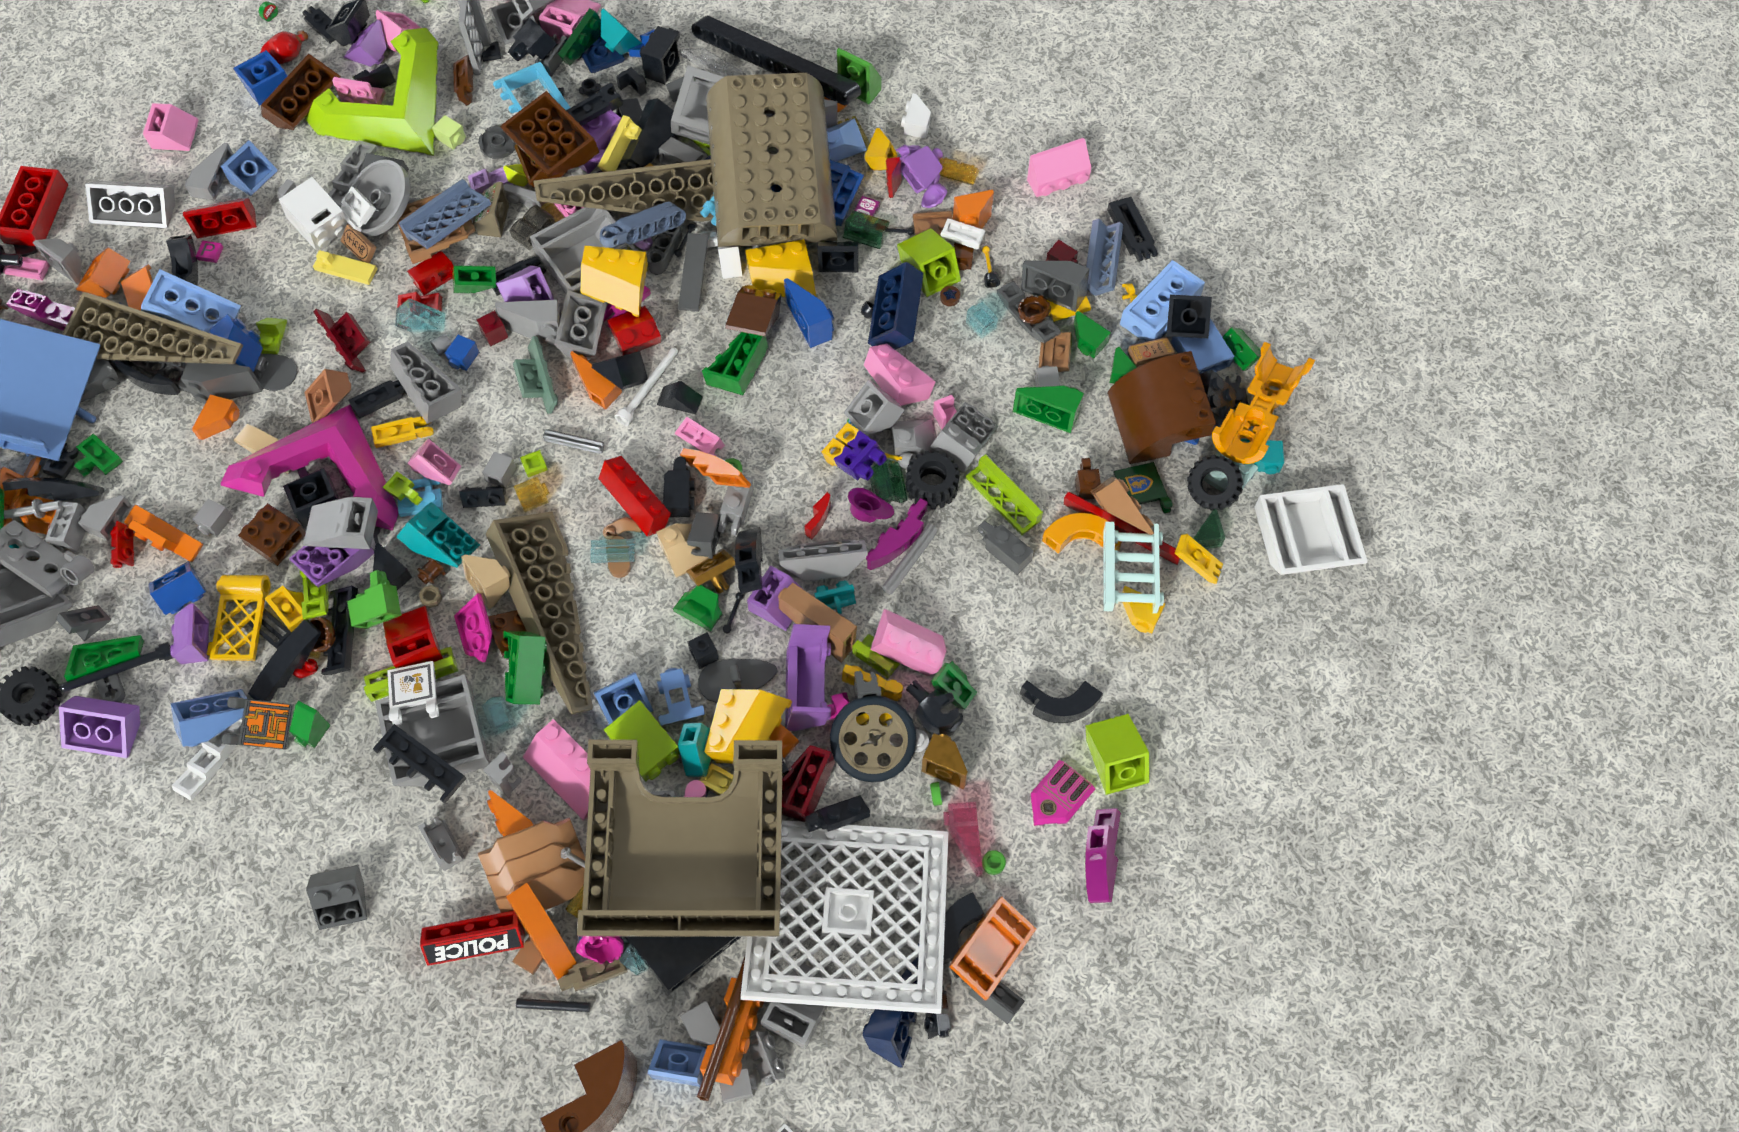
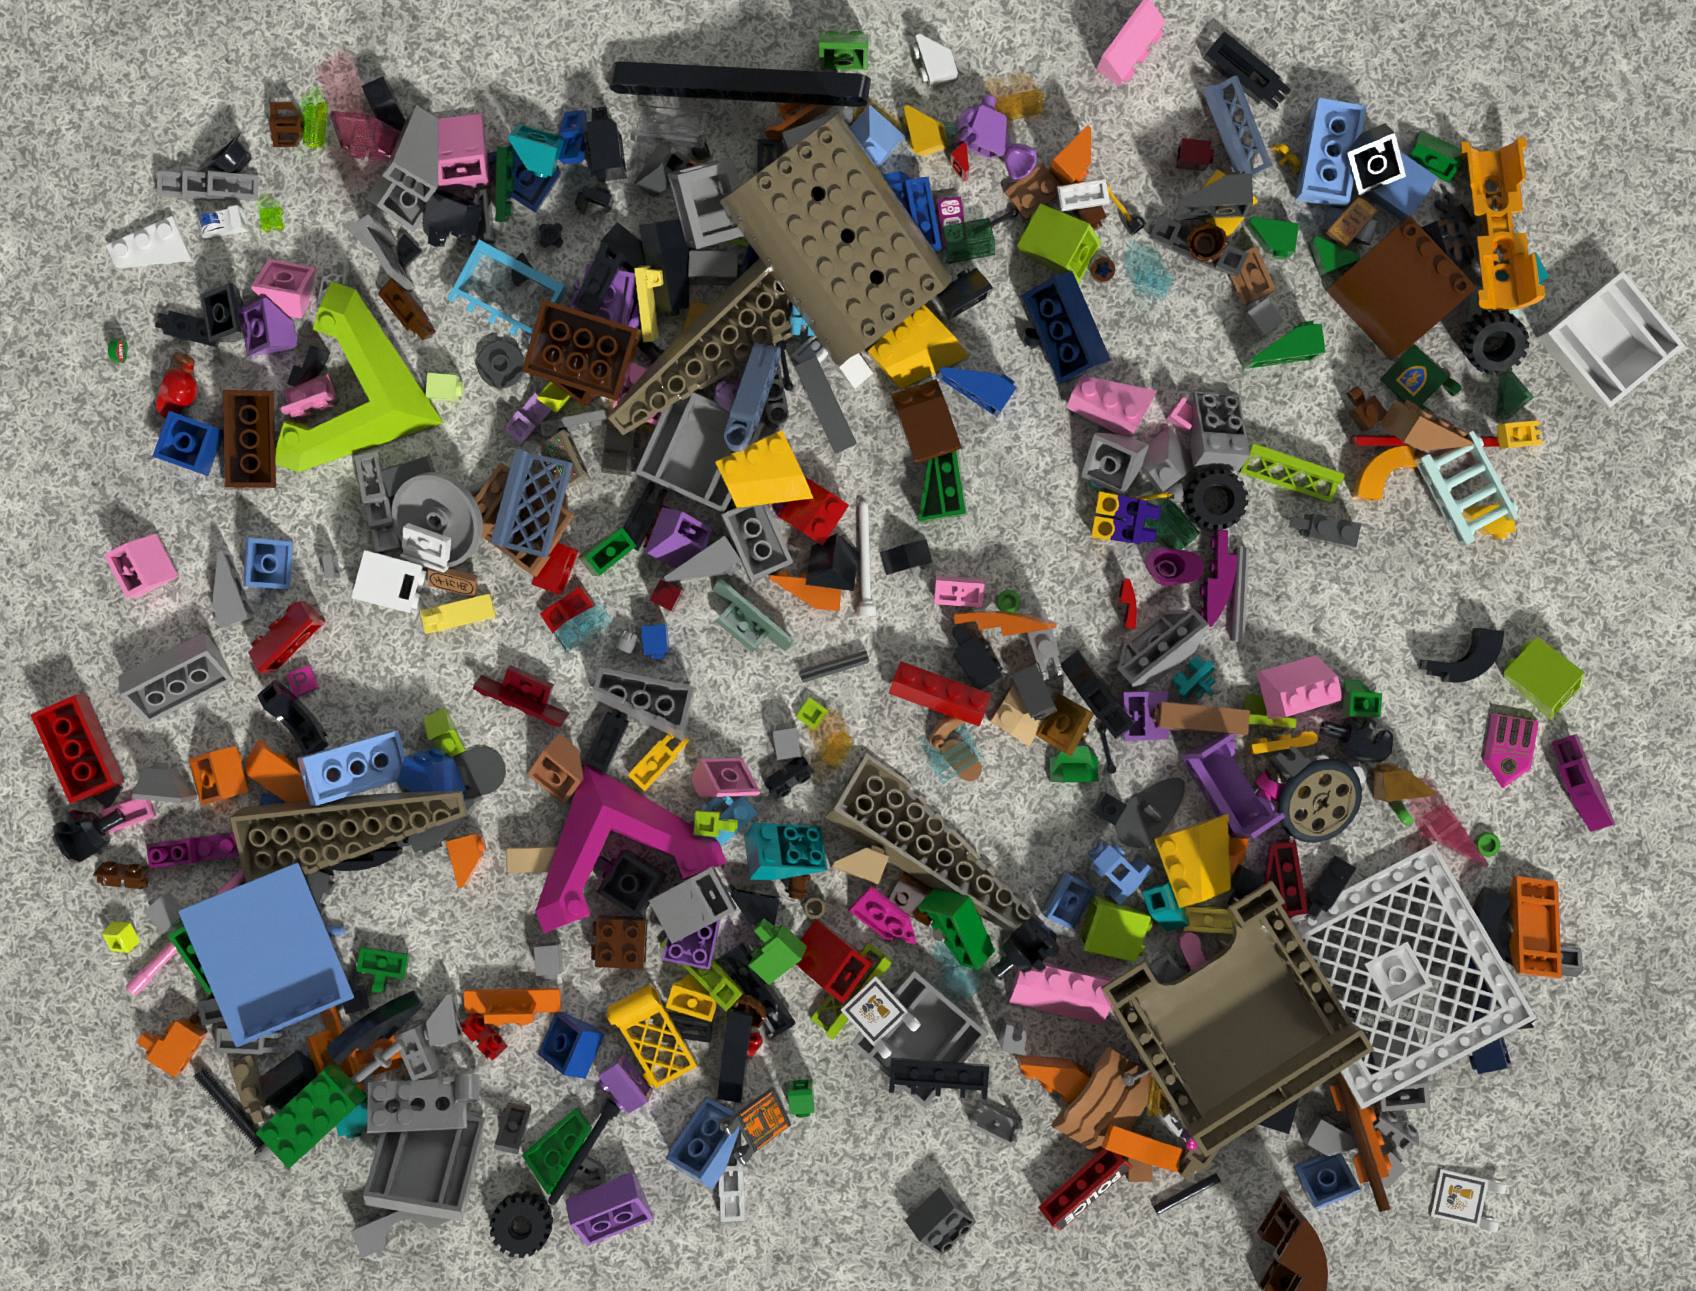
camera: 30 degrees left, 25 degrees up
(560, 705) = (1027, 949): none -> black piece

